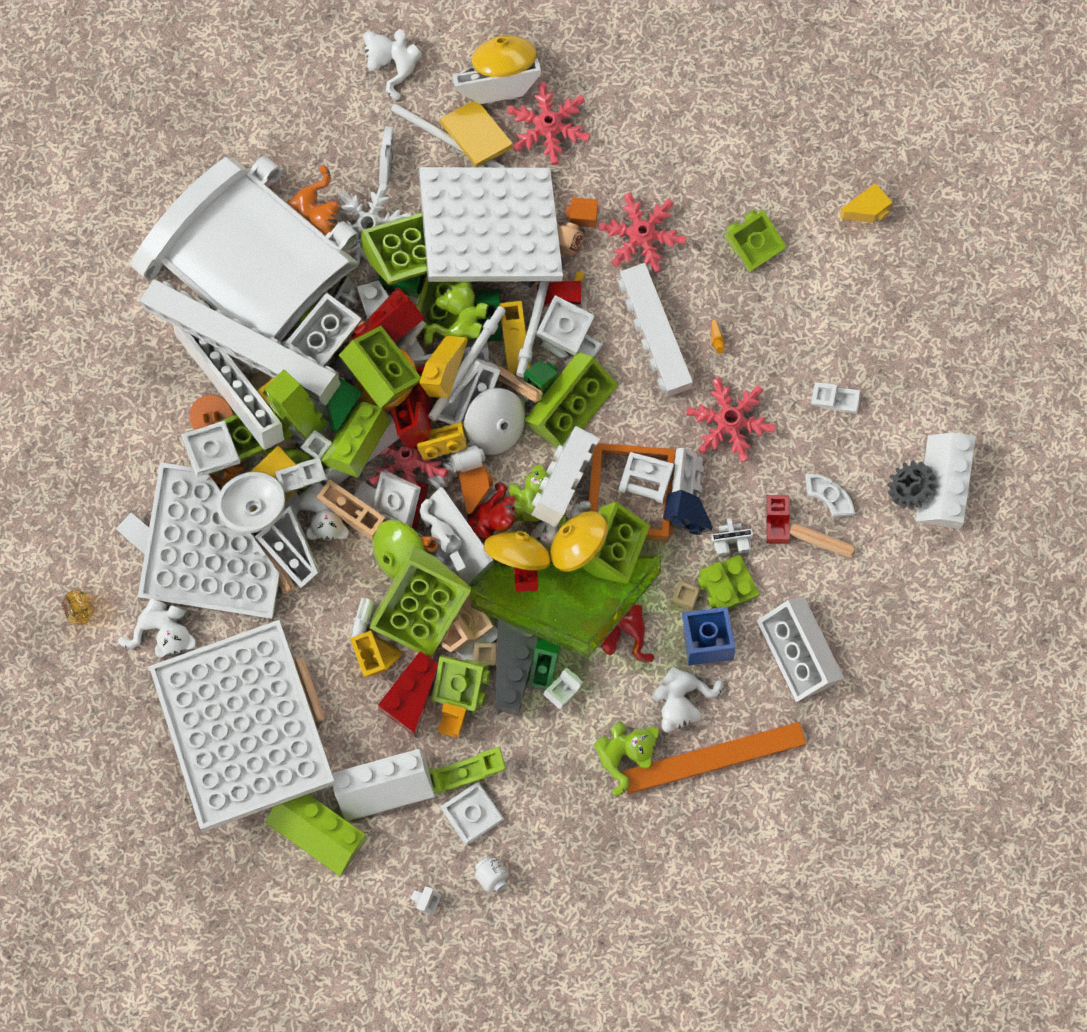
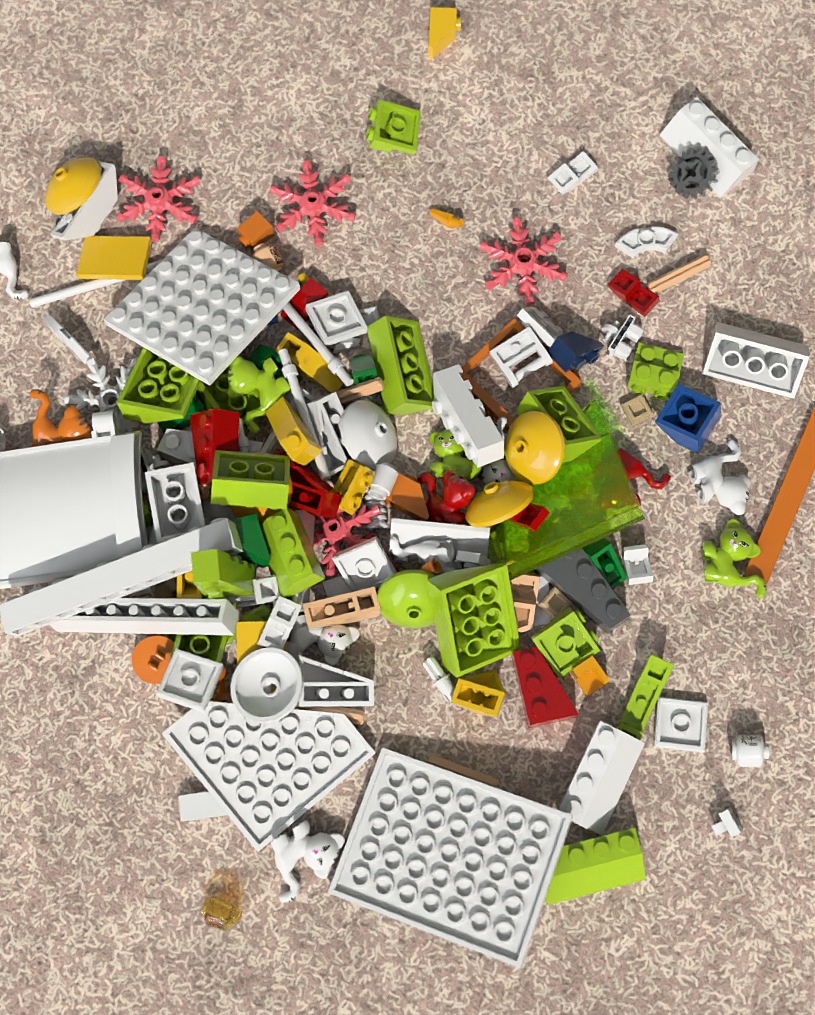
camera: 50 degrees left, 0 degrees up
(655, 330) = (400, 256): white brick -> none

